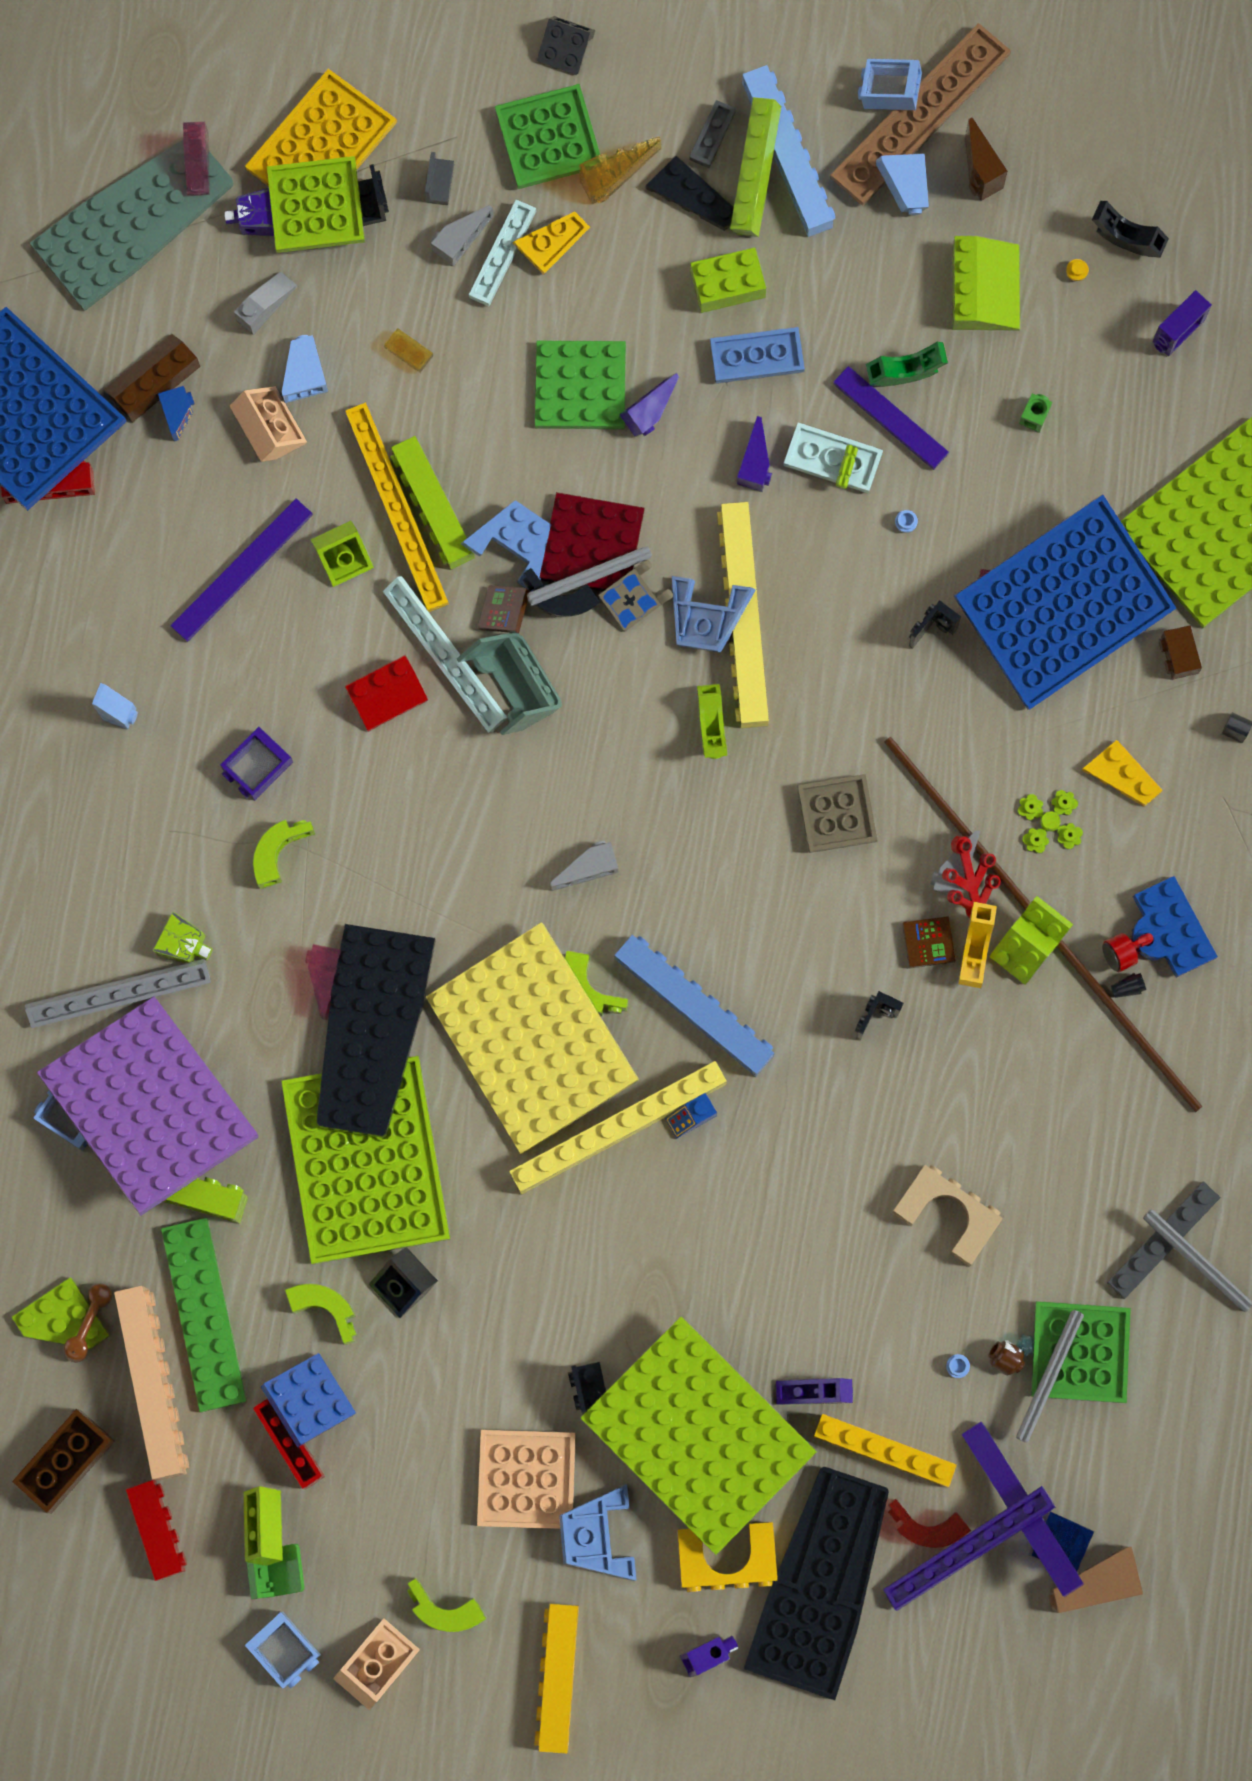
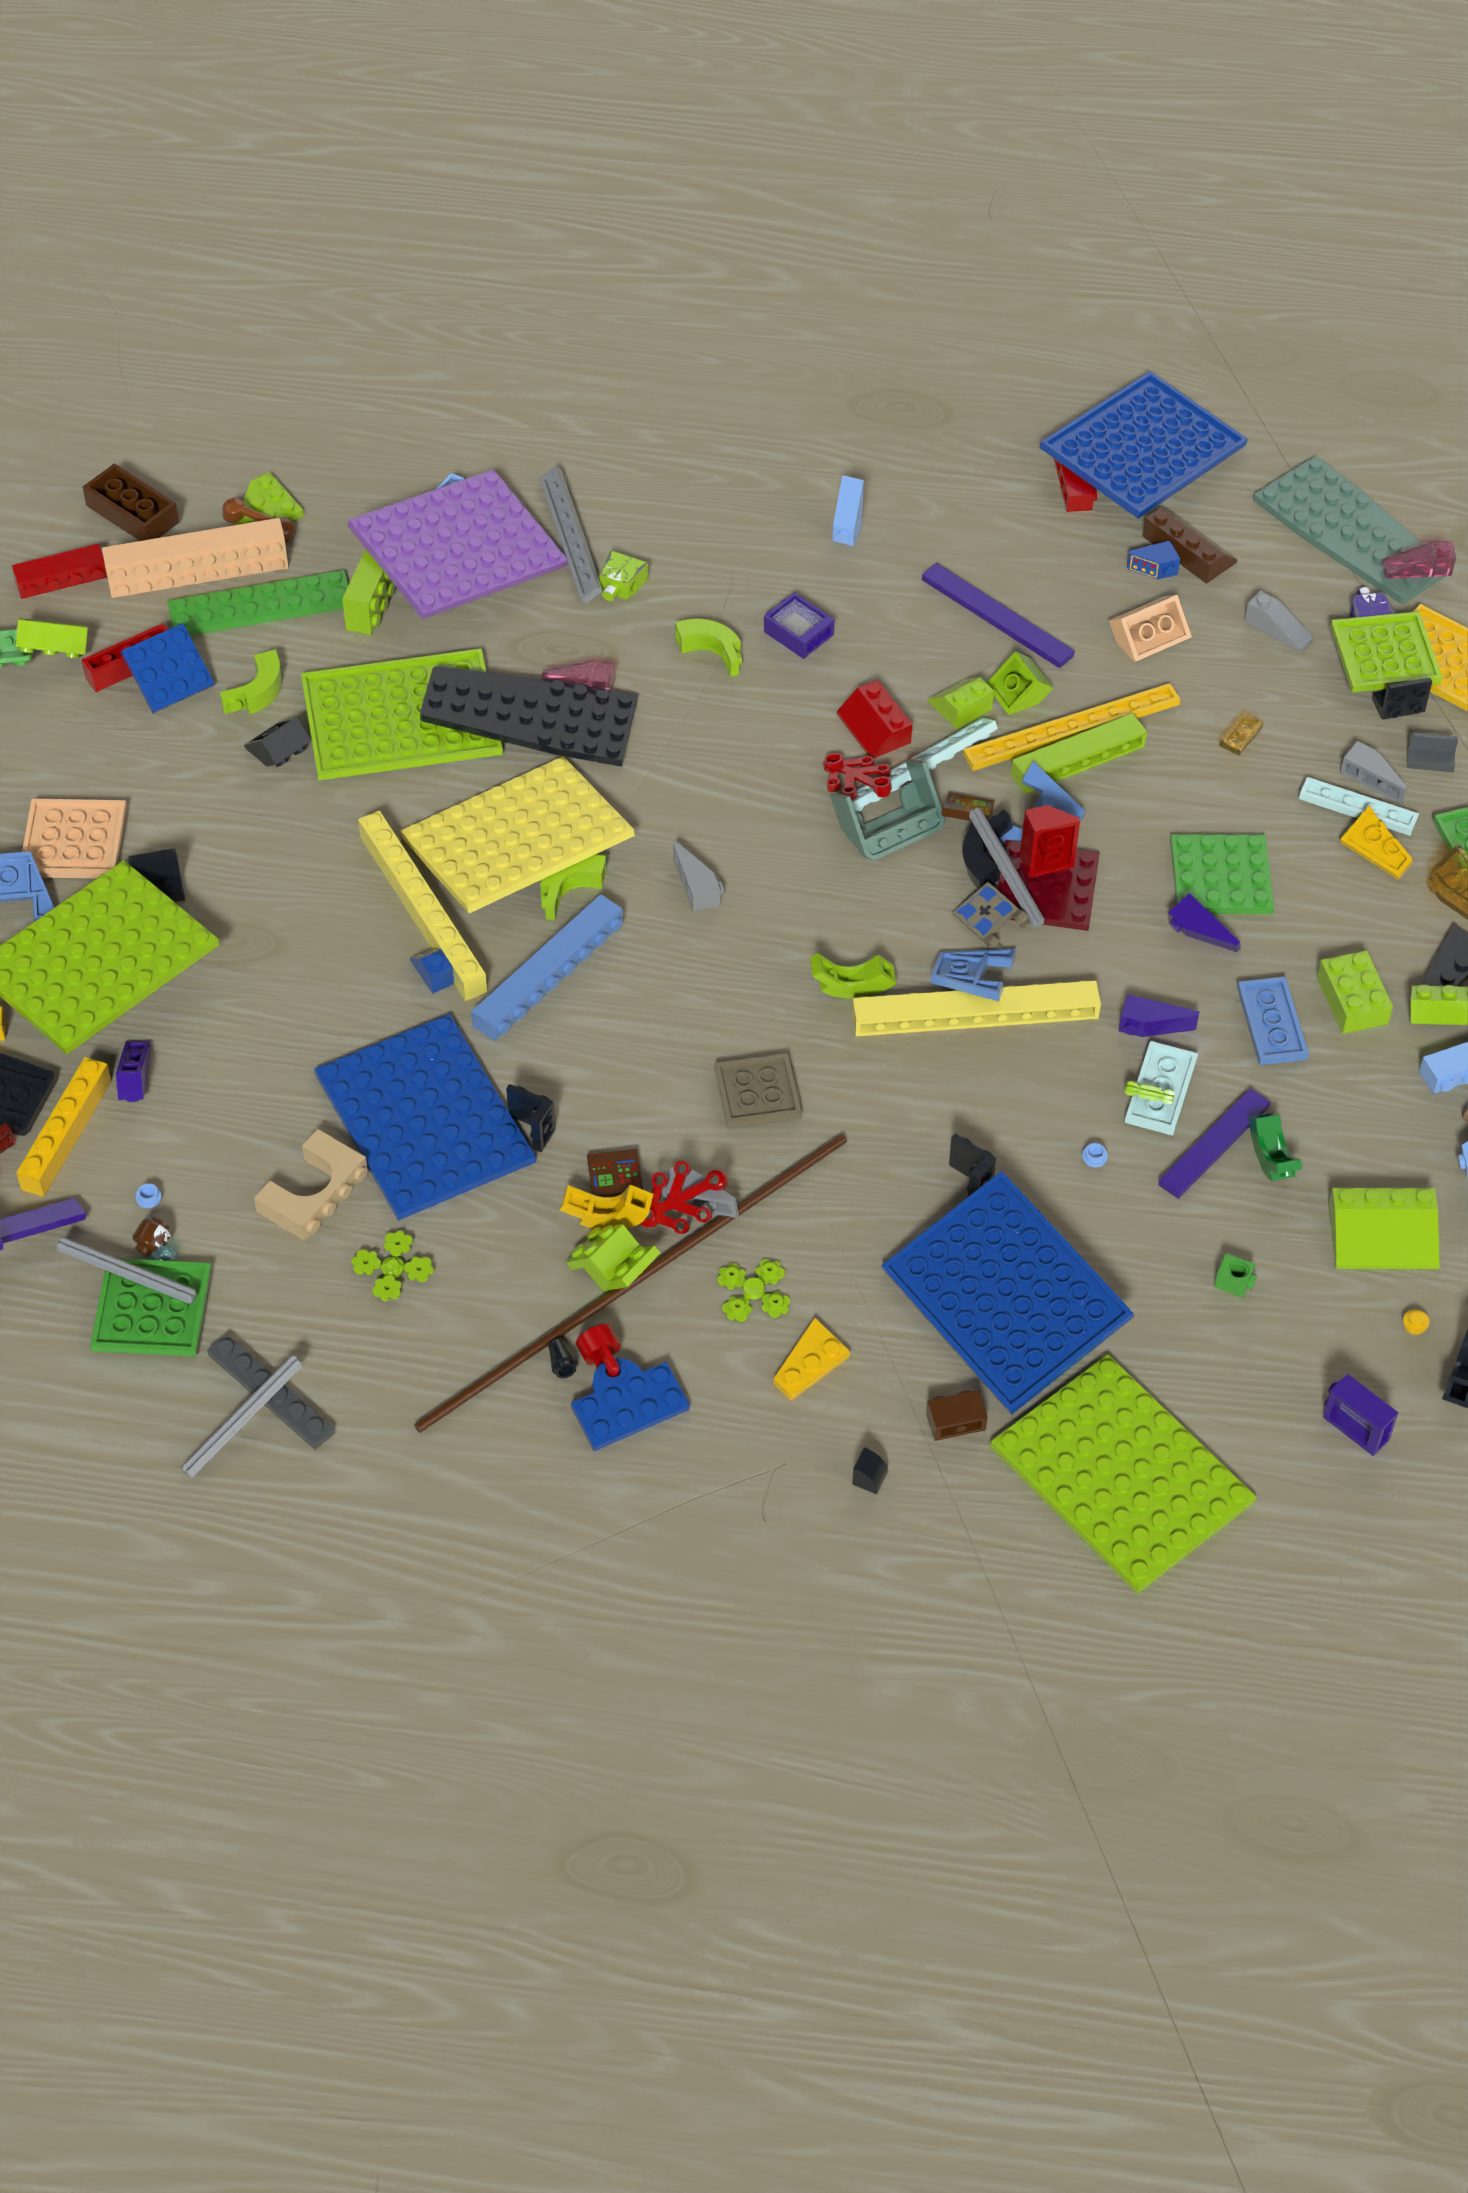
camera: 85 degrees right, 25 degrees down
(303, 371) = (1209, 652): light blue slope -> none
(358, 609) = (964, 701): none -> lime slope
(460, 713) = (836, 763): none -> red plant
(572, 535) = (1048, 840): none -> red slope
(862, 1117) = (424, 1116): none -> blue plate
(1032, 1138) = (393, 1266): none -> lime plant

